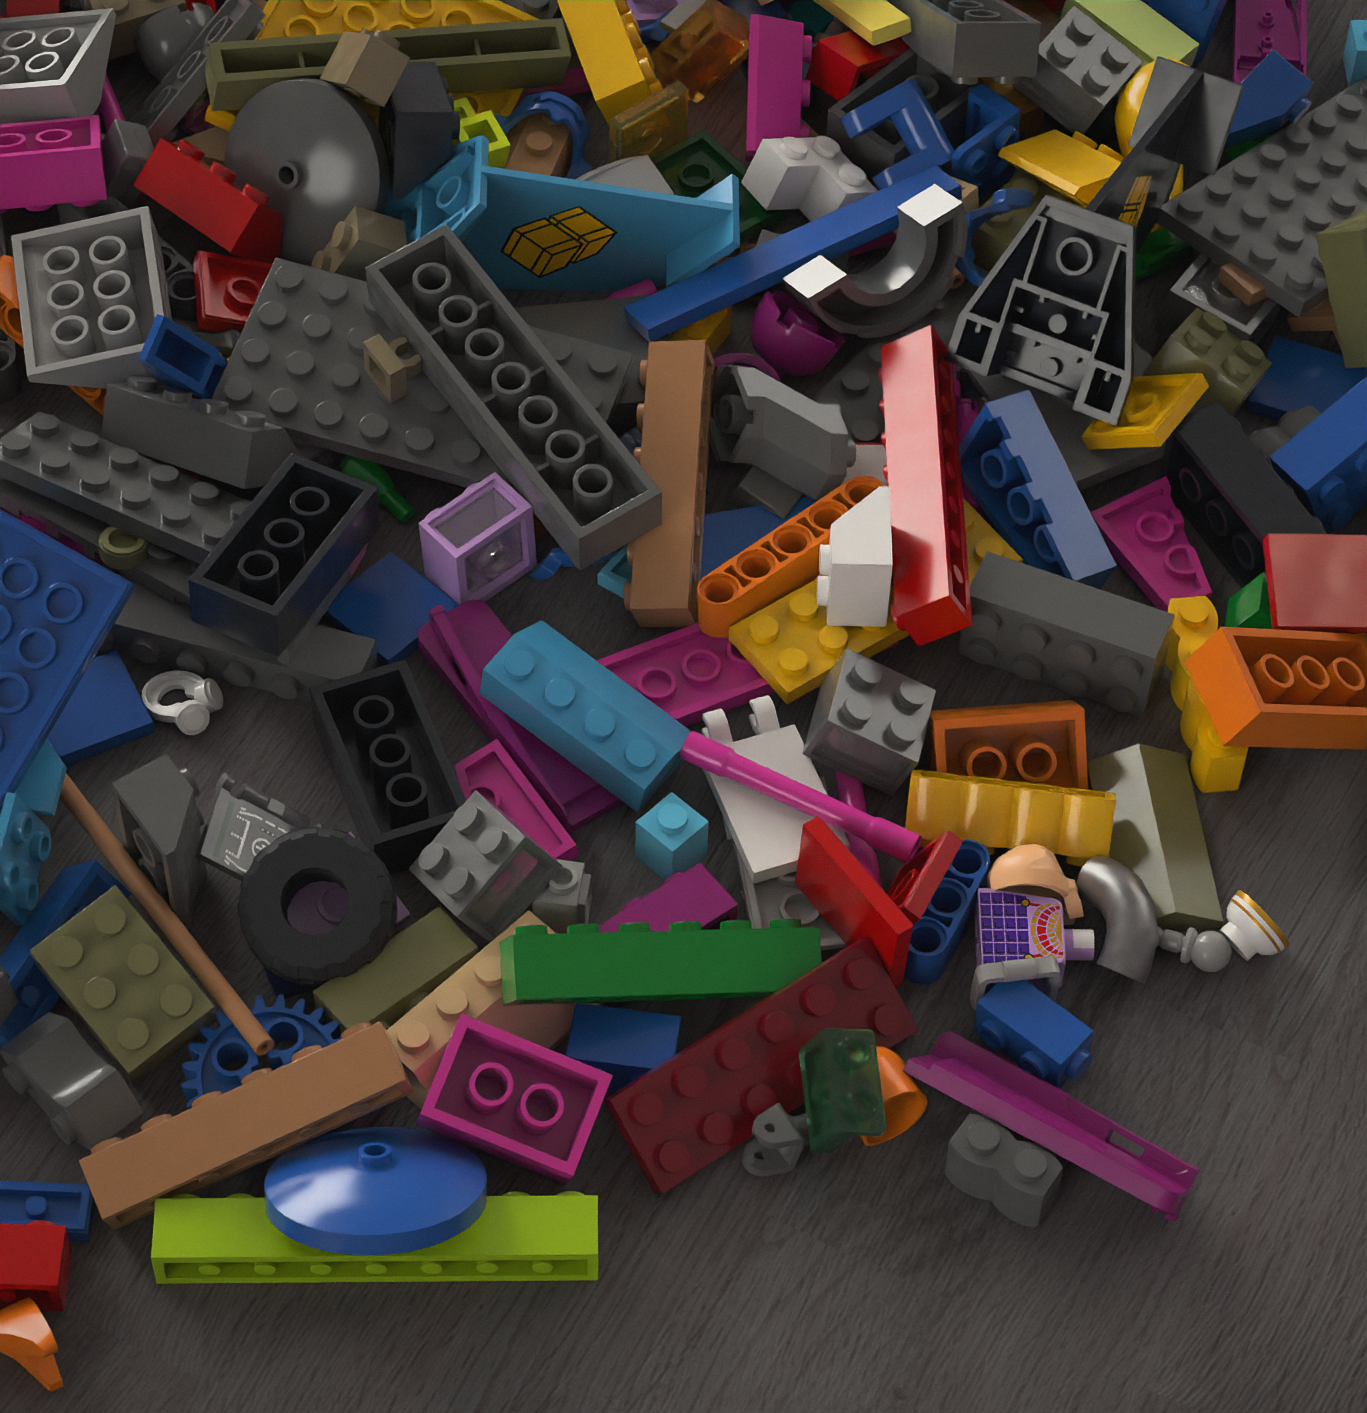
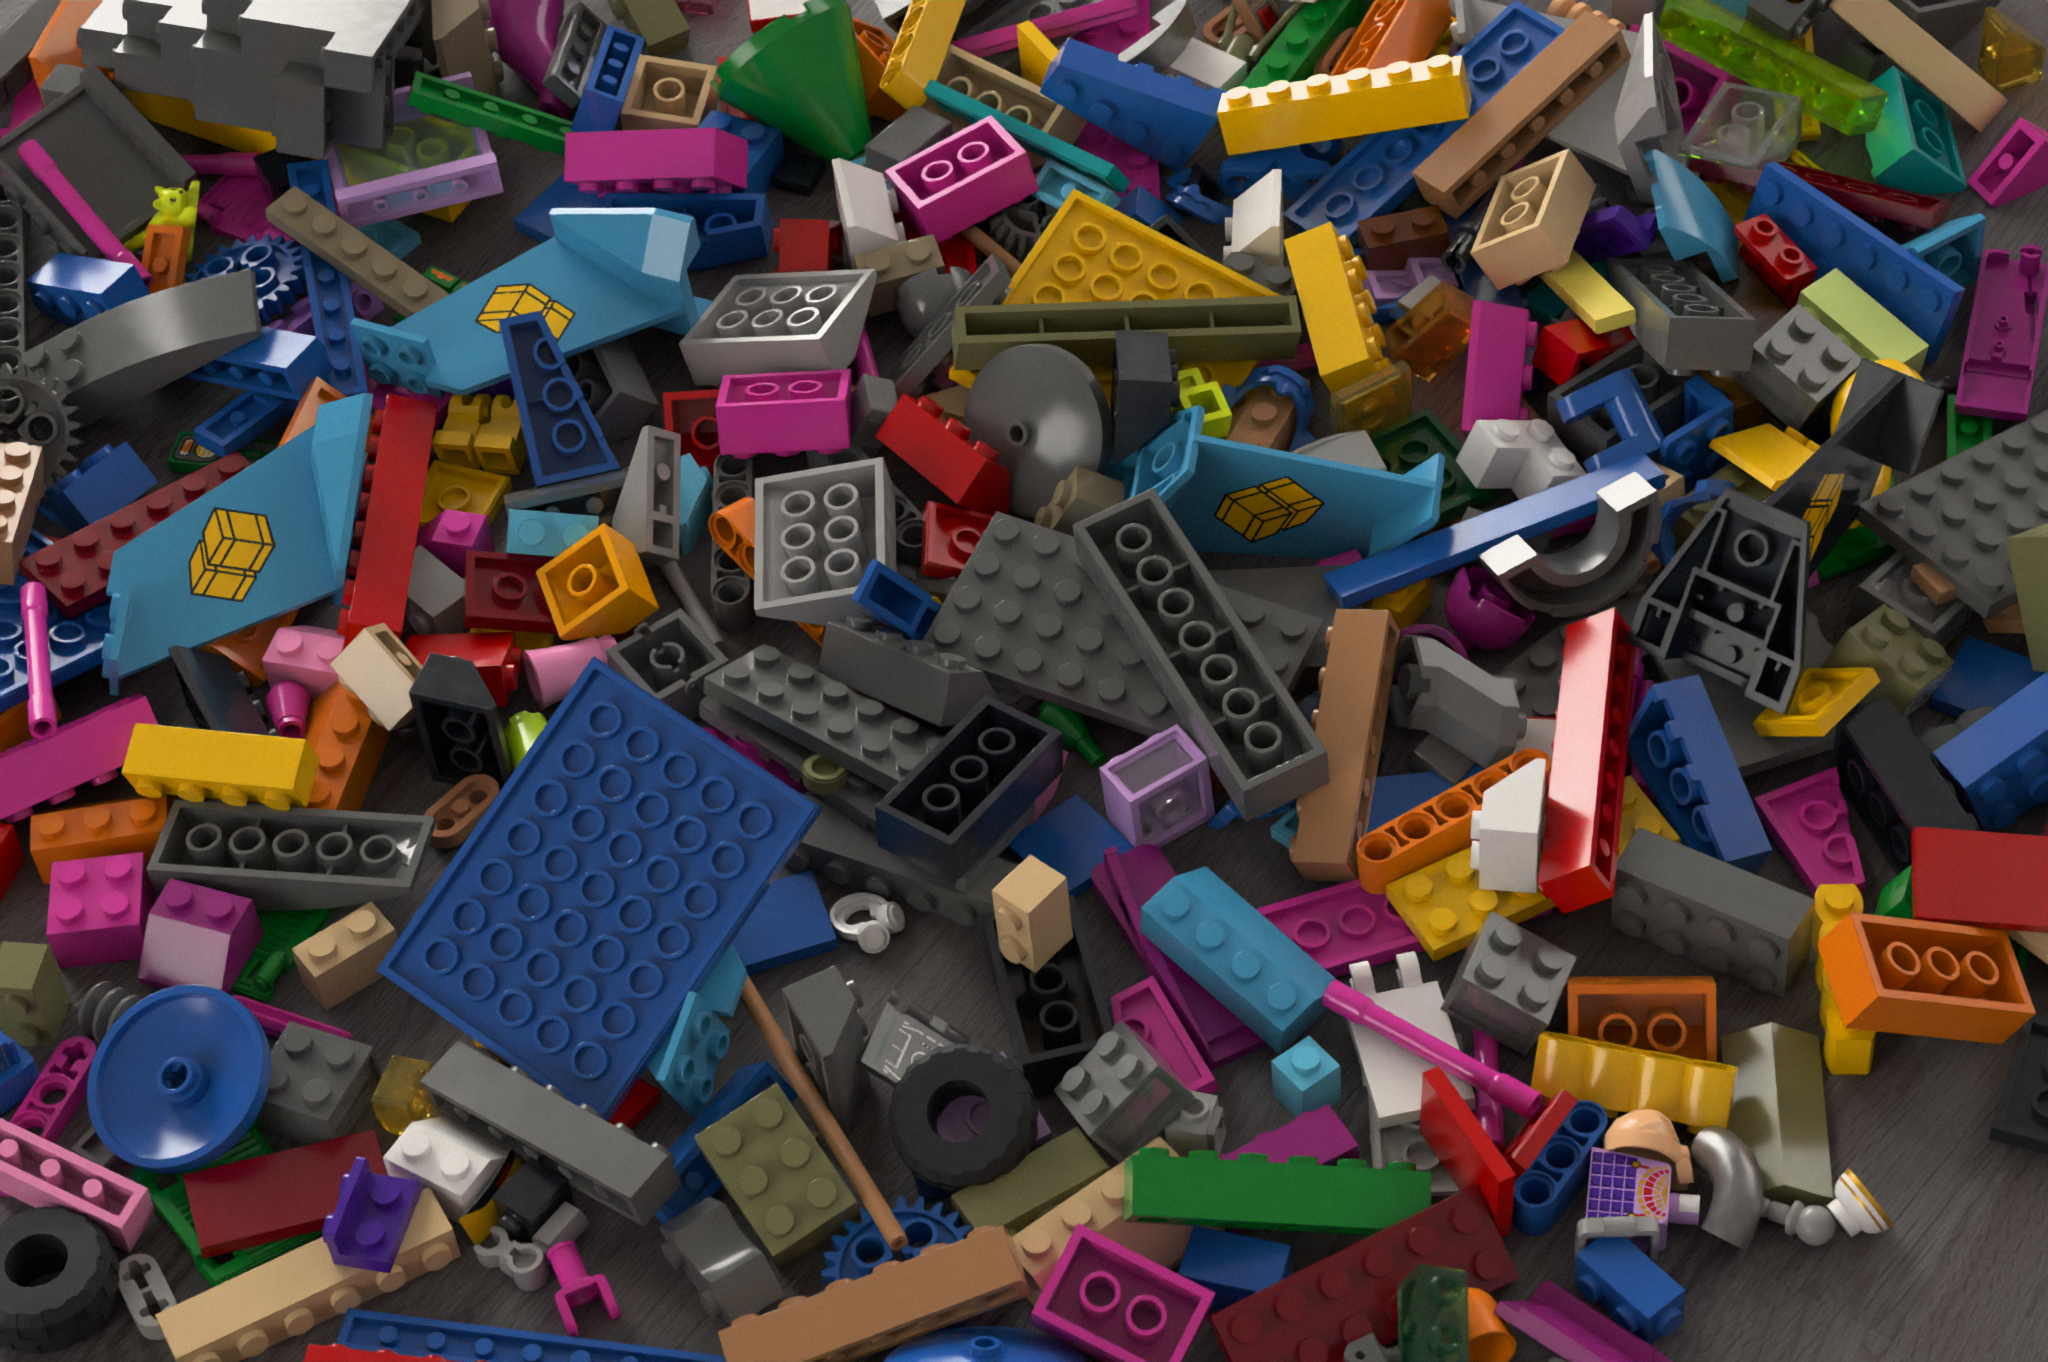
camera: 15 degrees right, 5 degrees down
(366, 66) = (1098, 334): dark tan brick -> none
(369, 683) = (1032, 913): none -> tan brick
(386, 367) = (1086, 620): dark tan tile -> none
(1269, 99) = (1979, 407): blue slope -> none

